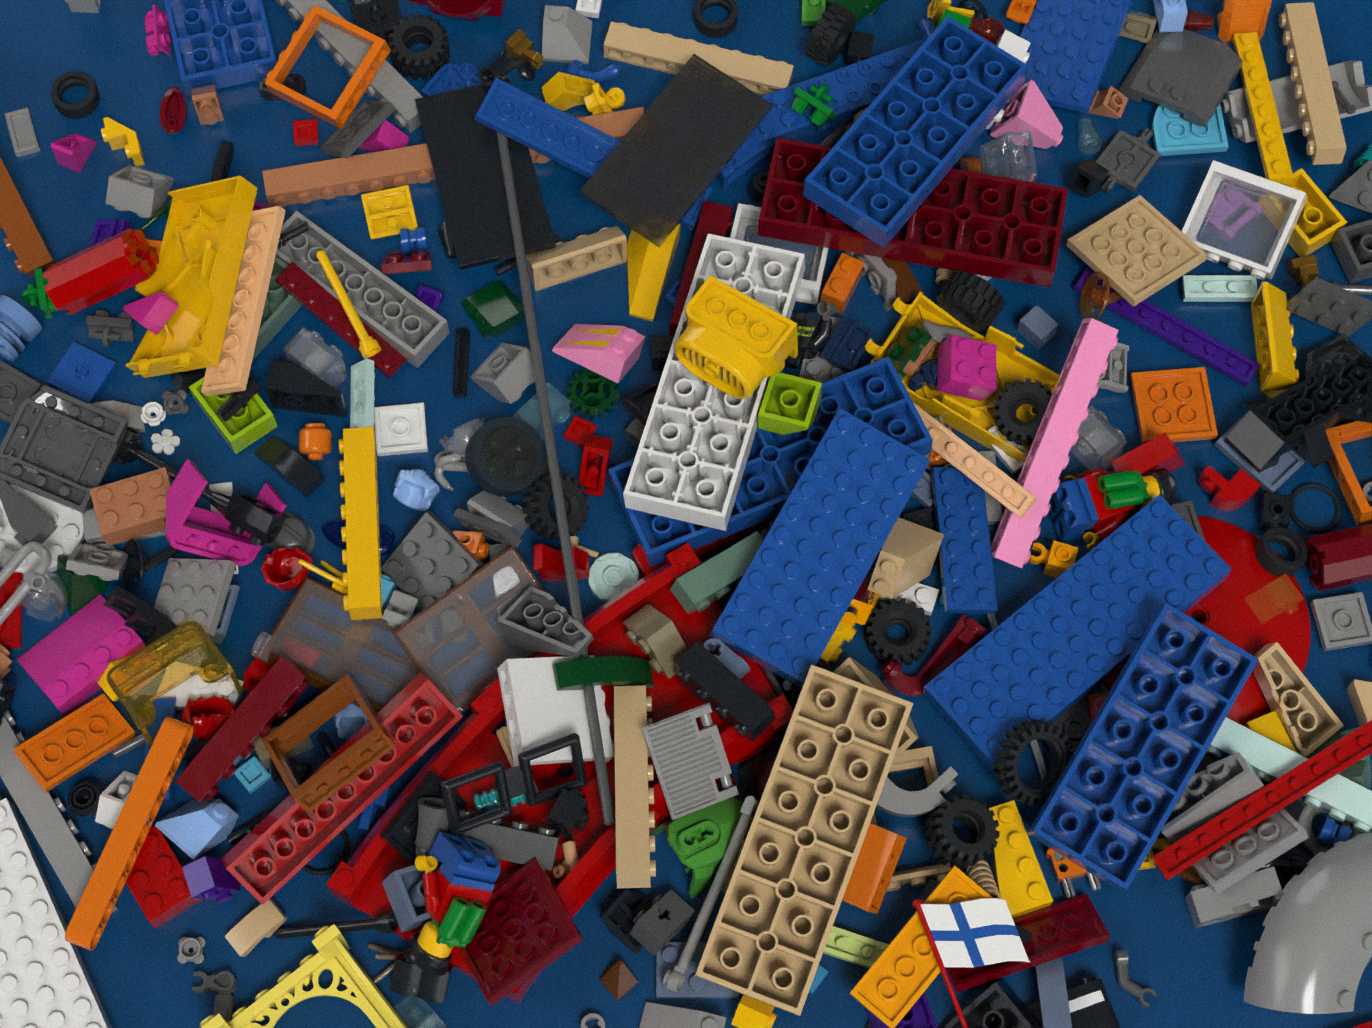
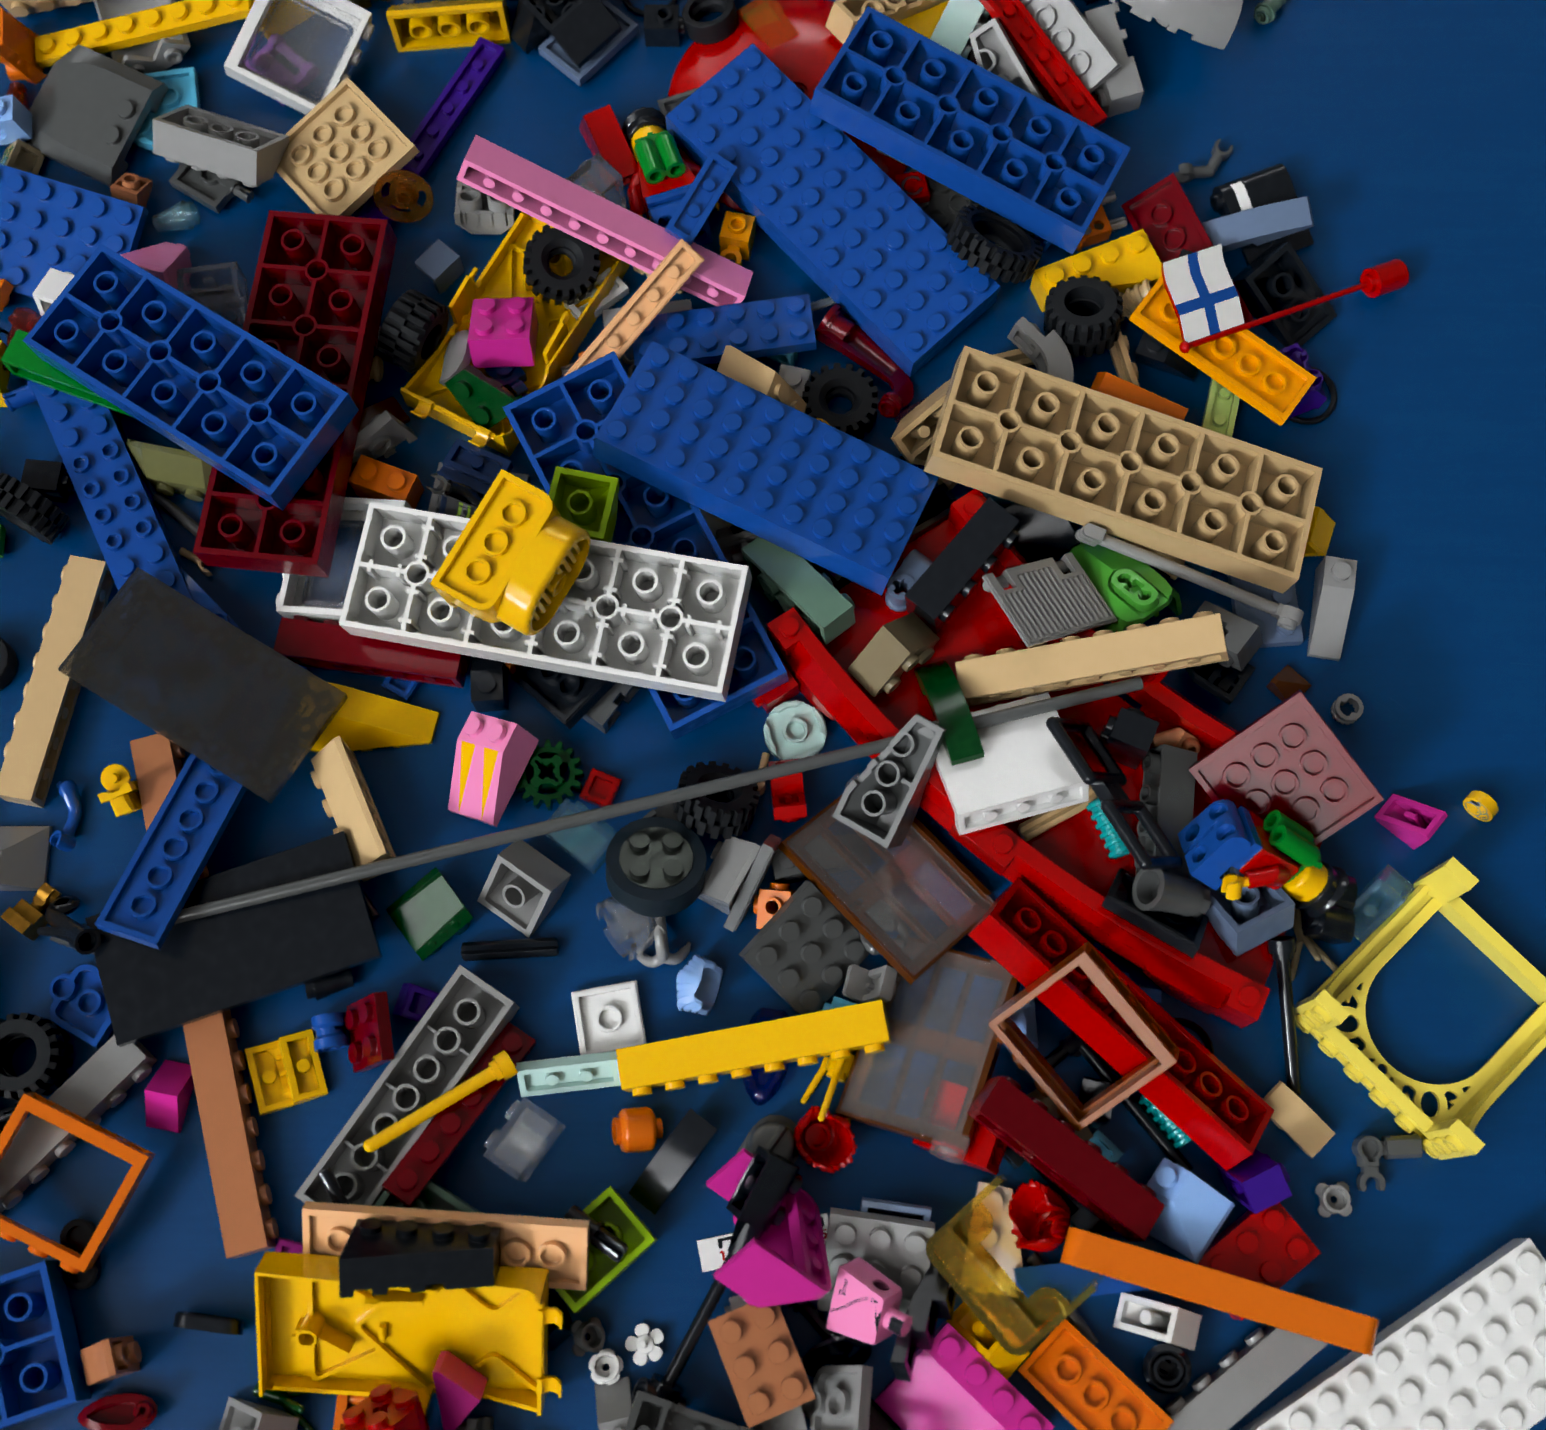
camera: 90 degrees left, 5 degrees up
(162, 579) = (866, 1304): none -> bright pink torso
(235, 274) = (418, 1256): none -> black wedge
(300, 391) = (566, 1157): black slope -> none
(306, 132) = (158, 1206): red plate -> none
(357, 128) = (158, 1127): dark grey tile -> none
(567, 90) = (101, 843): yellow arch -> none
(595, 464) = (647, 762): red slope -> none
(757, 186) = (247, 588): black cone -> none
(804, 100) = (129, 528): green hips -> none
(1077, 517) = (701, 198): none -> blue plate
(1088, 178) = (238, 212): black brick -> none
(1146, 161) = (218, 144): none -> light grey slope
(1174, 404) = (536, 122): orange plate -> none
(1218, 288) = (382, 75): light aqua plate -> none
(1231, 494) = (639, 68): red brick -> none

